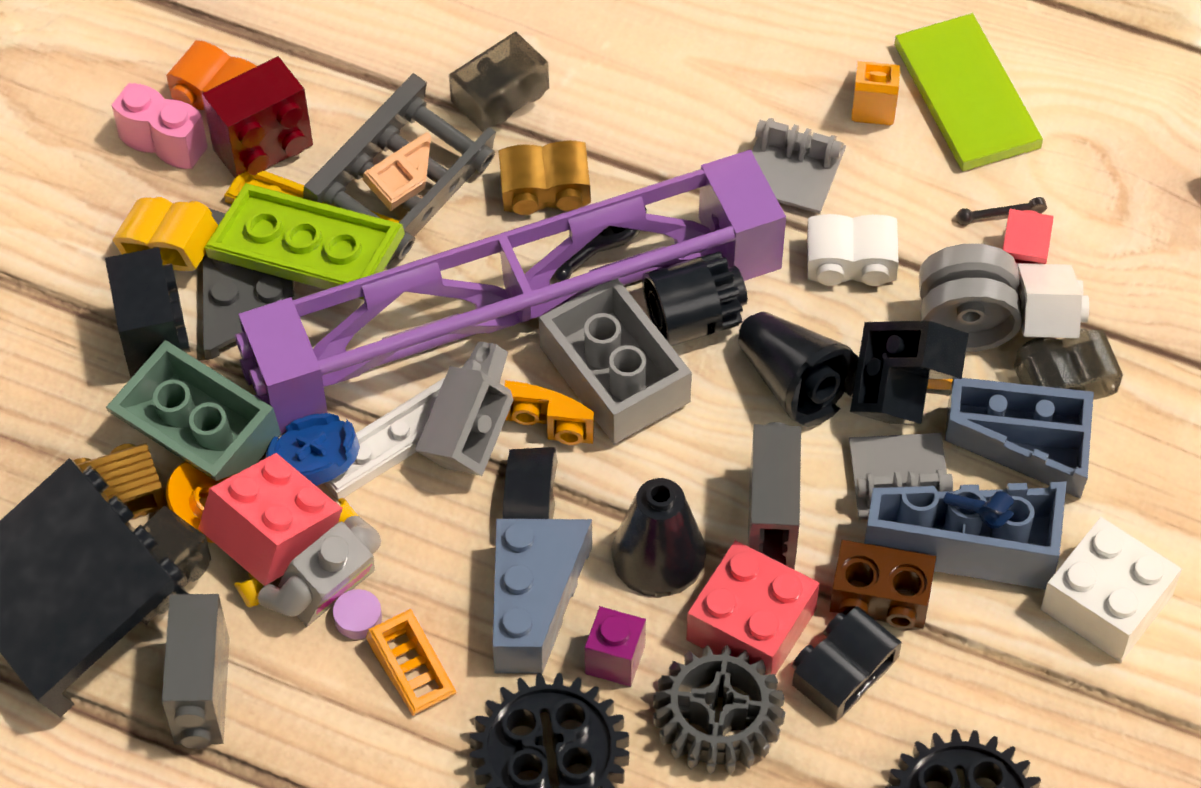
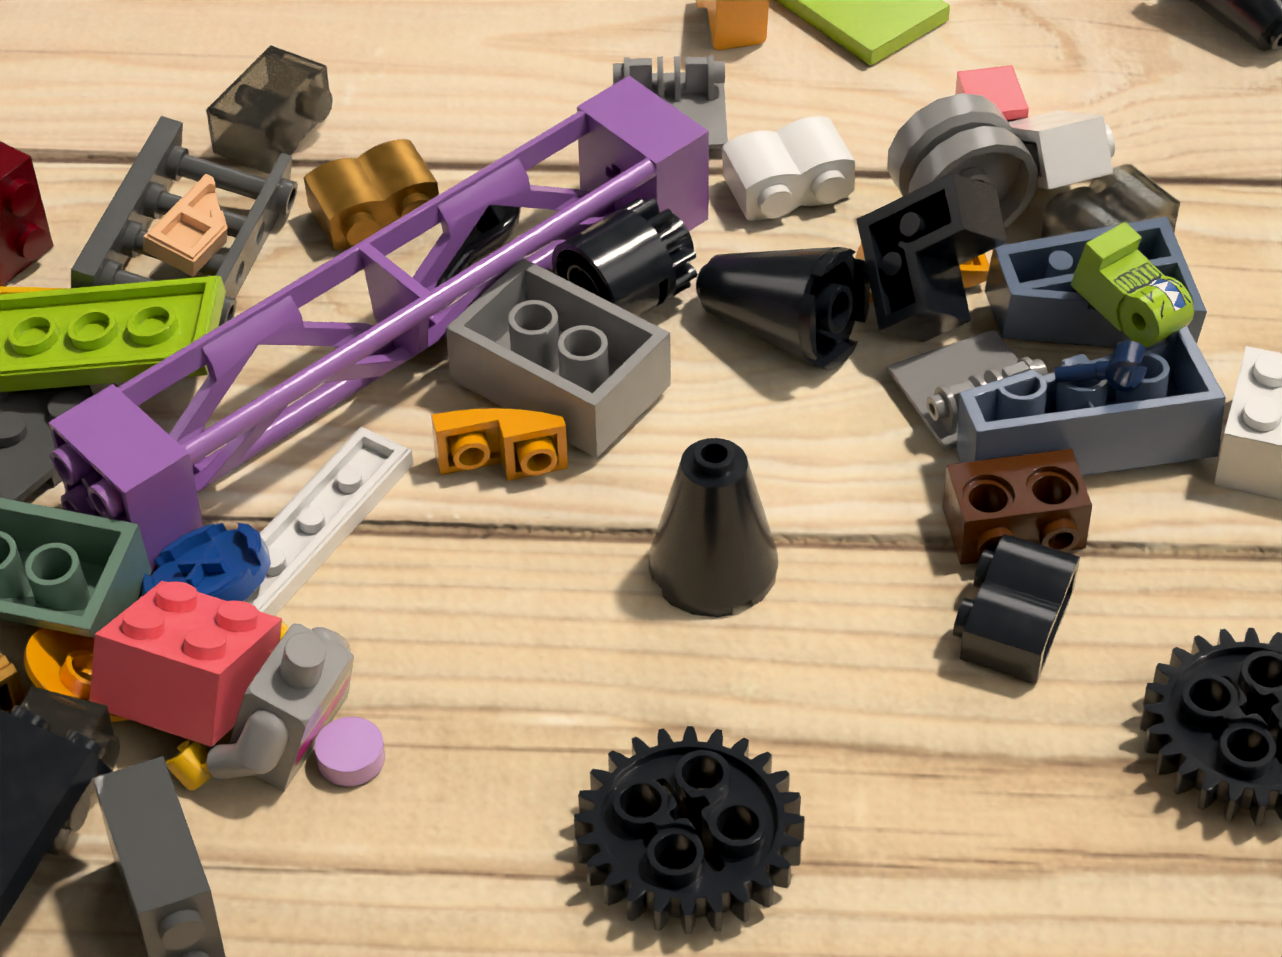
camera: 20 degrees left, 10 degrees down
(393, 628) = (429, 741): light orange slope -> none
(468, 413) = (400, 465): light grey hinge -> none
(530, 483) = (517, 538): black slope -> none
(533, 584) = (571, 643): sand blue wedge -> none
(615, 646) = (717, 677): magenta brick -> none
(682, 700) = (886, 710): dark grey gear -> none
(753, 608) = (872, 584): coral brick -> none
(775, 491) = (840, 445): dark grey brick -> none
(965, 216) = (900, 106): black hinge -> none
(1031, 447) = (1130, 288): none -> lime leg

